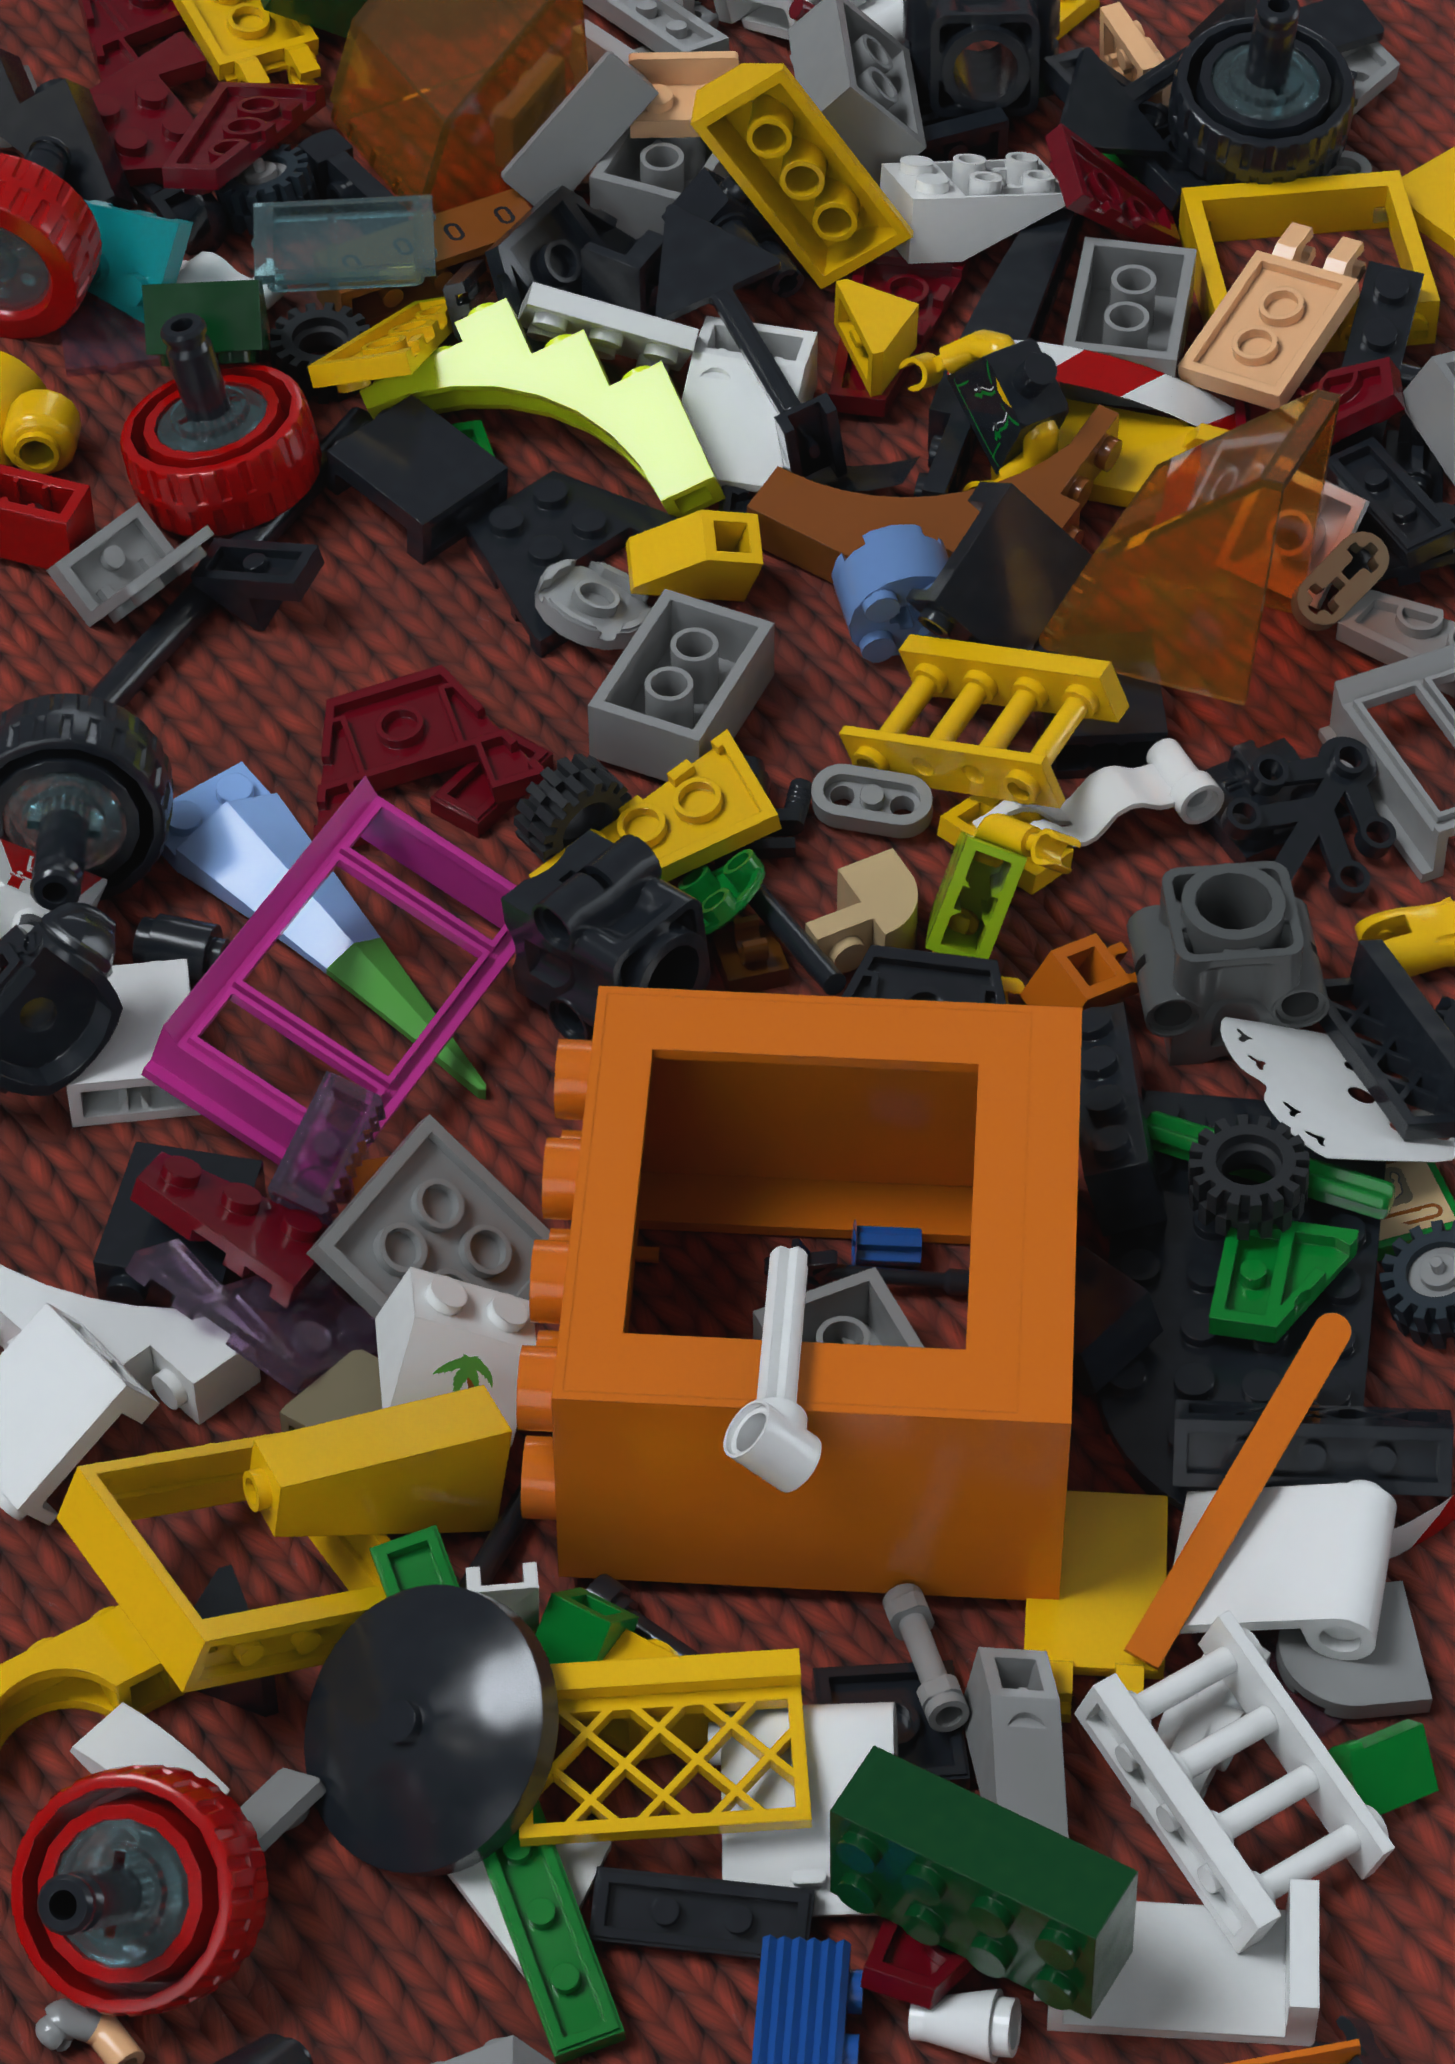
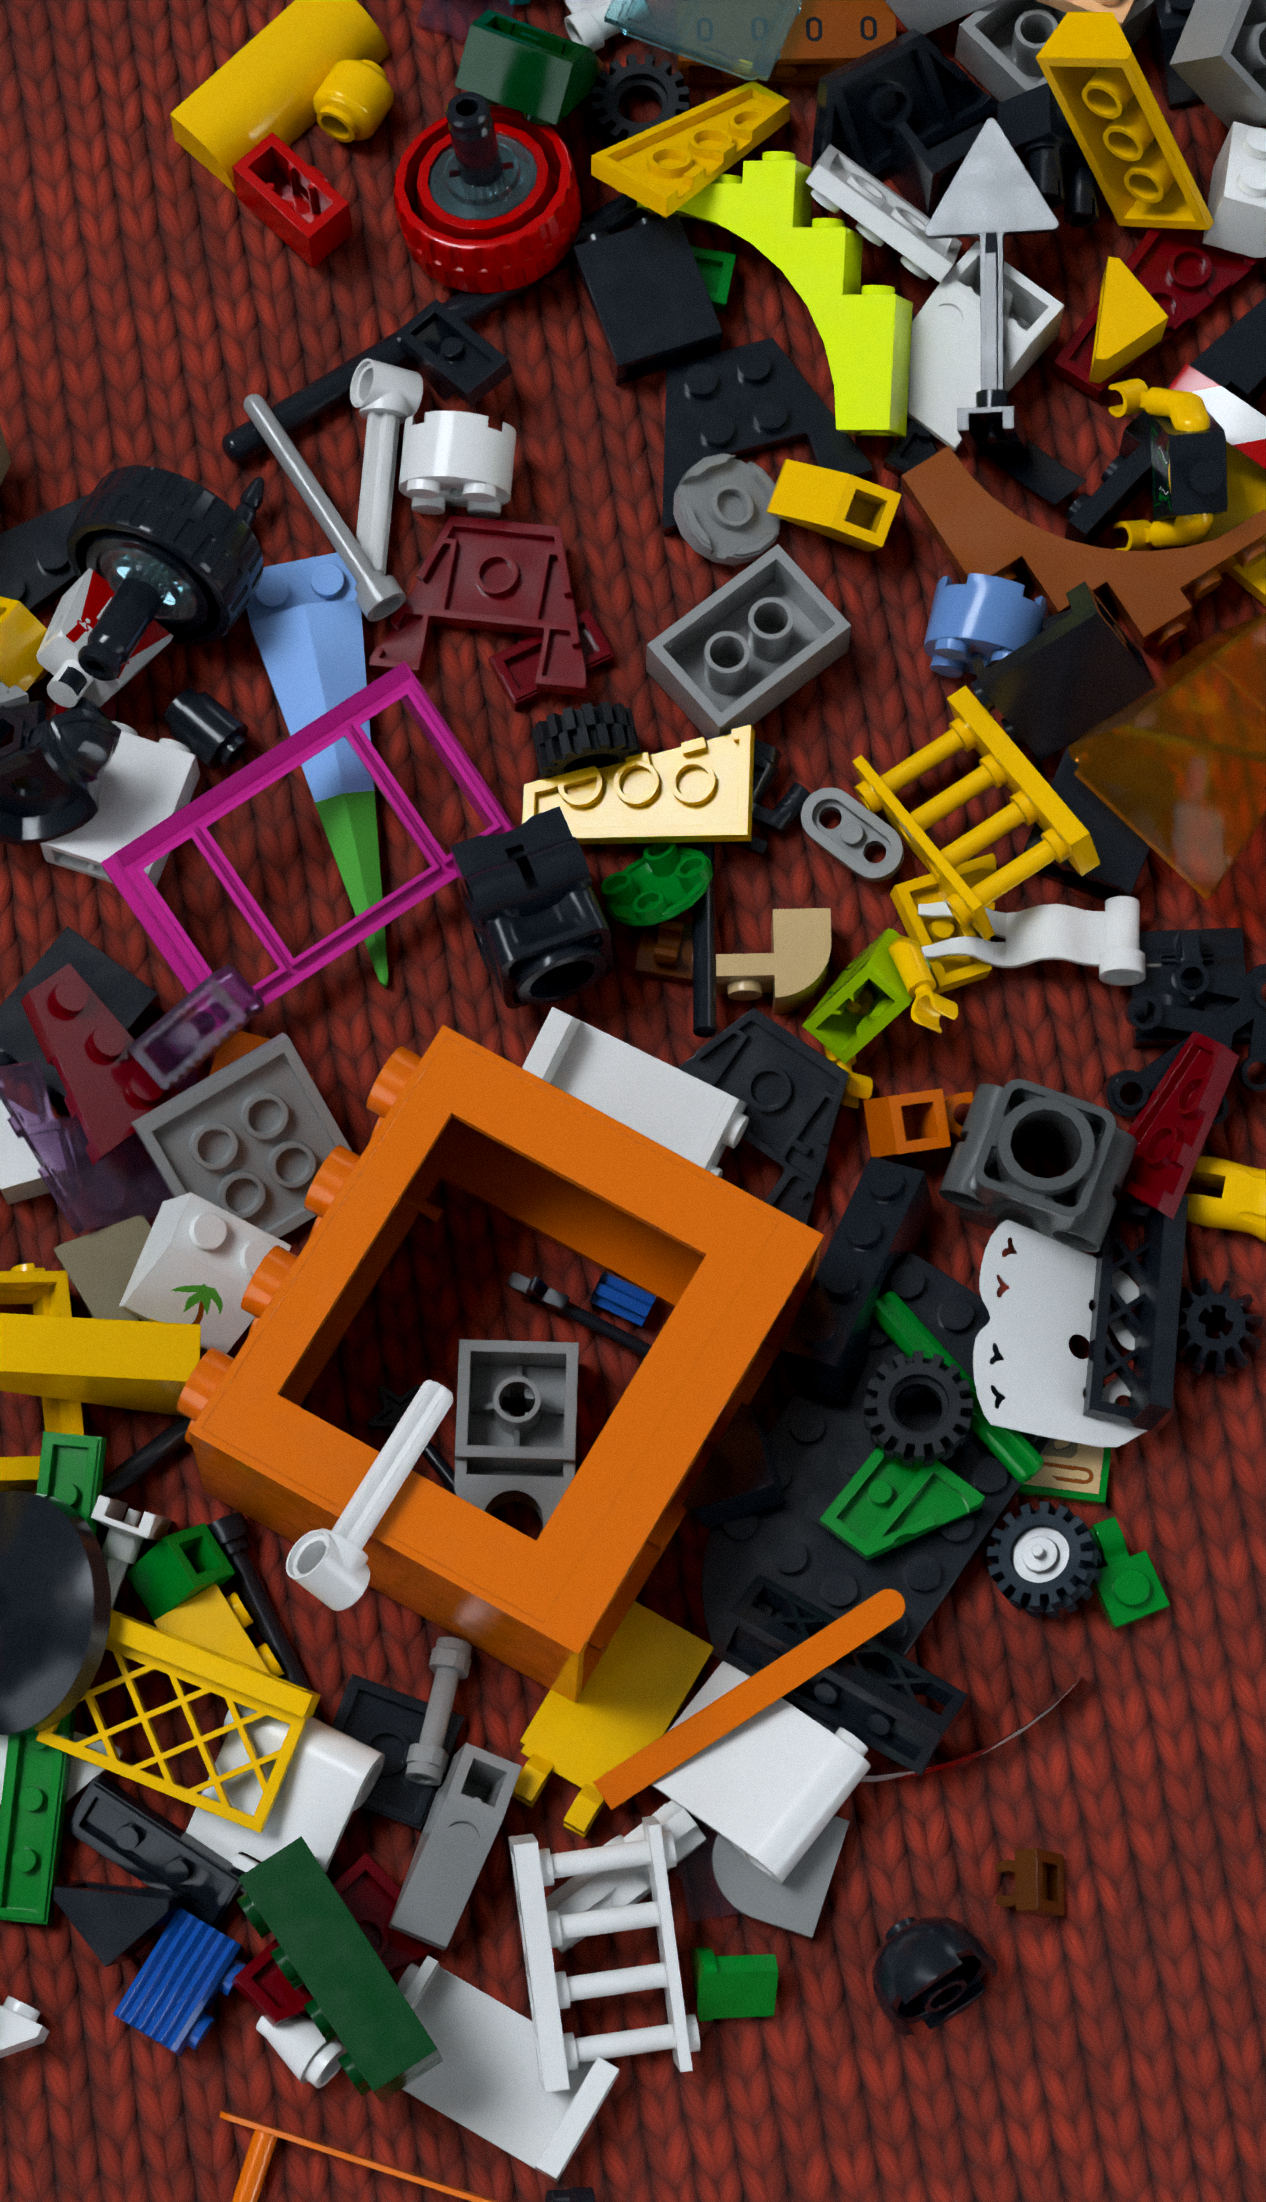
camera: 25 degrees right, 25 degrees up
(123, 566) = (352, 291): light grey bracket -> none
(212, 637) = (384, 399): none -> white axle
(292, 774) = (376, 592): none -> light grey piece
(310, 647) = (457, 463): none -> white brick
(466, 281) = (788, 115): black tile -> none
(701, 1980) = (118, 1917): none -> black slope
(1336, 882) = (1177, 1123): none -> dark red wing

